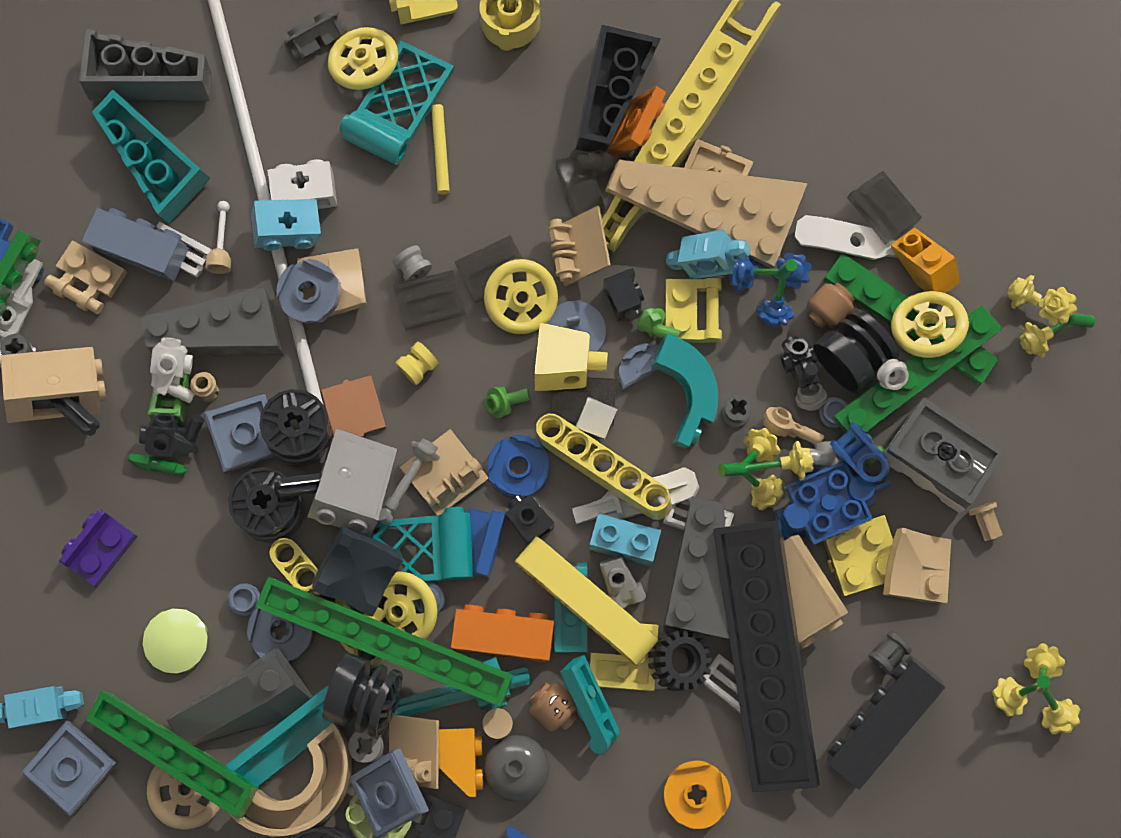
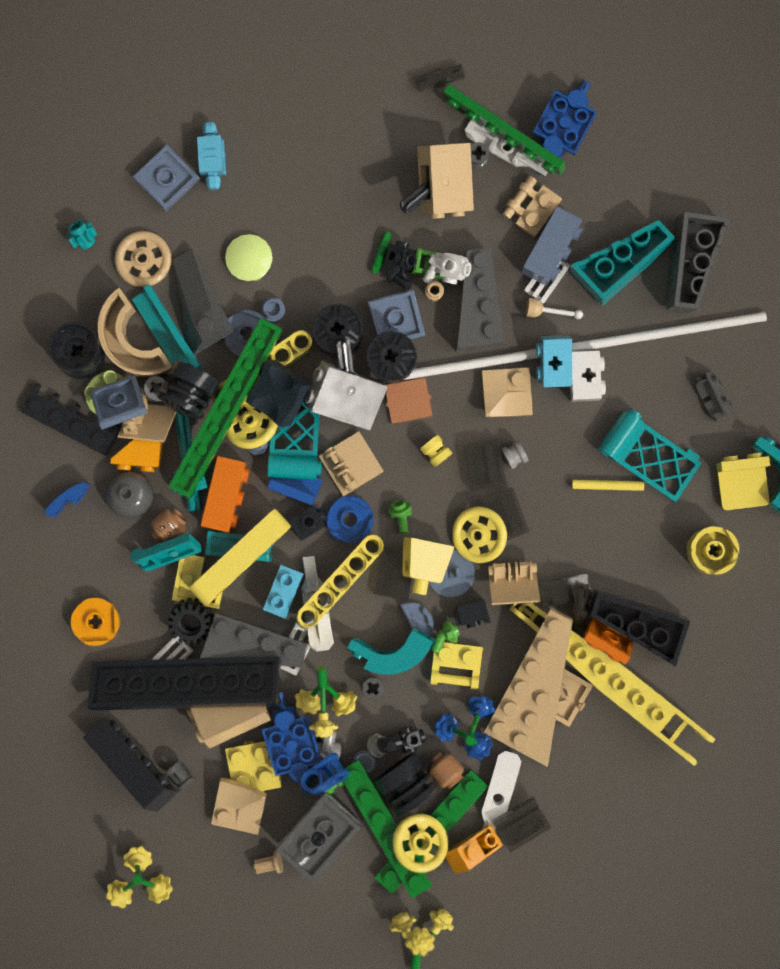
camera: 90 degrees right, 10 degrees up
(97, 547) = (323, 206): dark purple bracket -> none
(172, 754) = (164, 251): green plate -> none
(301, 275) = (494, 362): sand blue plate -> none
(364, 65) = (679, 448): light yellow plate -> none
(425, 452) = (365, 450): light grey piece -> none
(497, 723) = (159, 484): tan piece -> none
(596, 417) = (378, 580): white slope -> none
(622, 589) = (252, 584): light grey plate -> none
(708, 254) = (495, 681): medium azure piece -> none
(780, 423) = (359, 720): tan plate -> none
(897, 378) = (381, 807): white plate -> none

